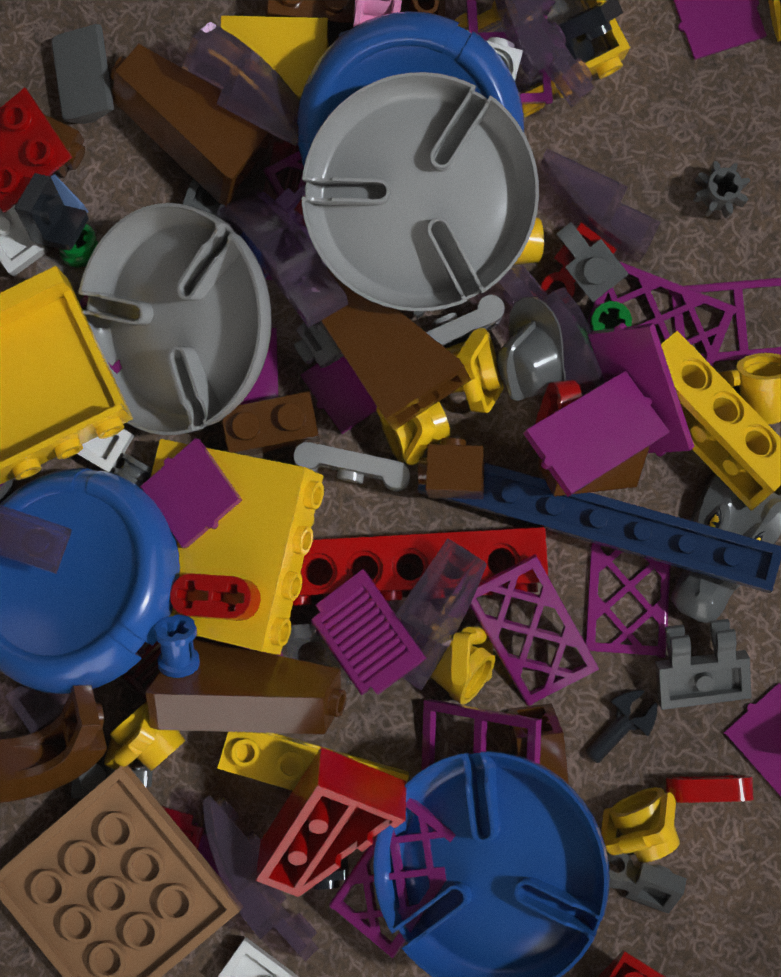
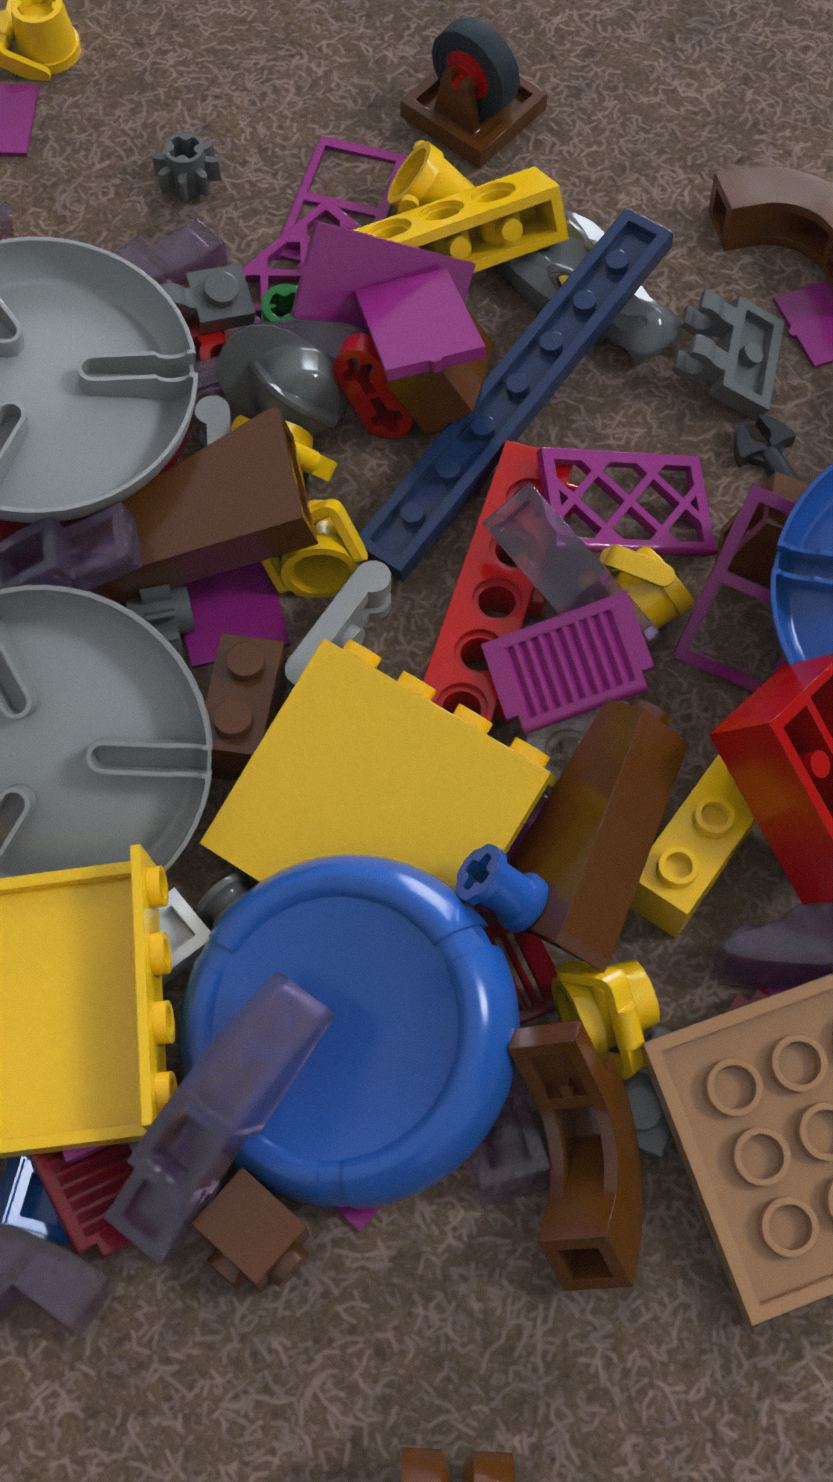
camera: 70 degrees left, 20 degrees down
(191, 493) = (293, 811): magenta piece -> none
(215, 587) = (437, 804): red beam -> none
(453, 470) = (396, 506): reddish brown brick -> none
(597, 607) = (566, 423): magenta window -> none

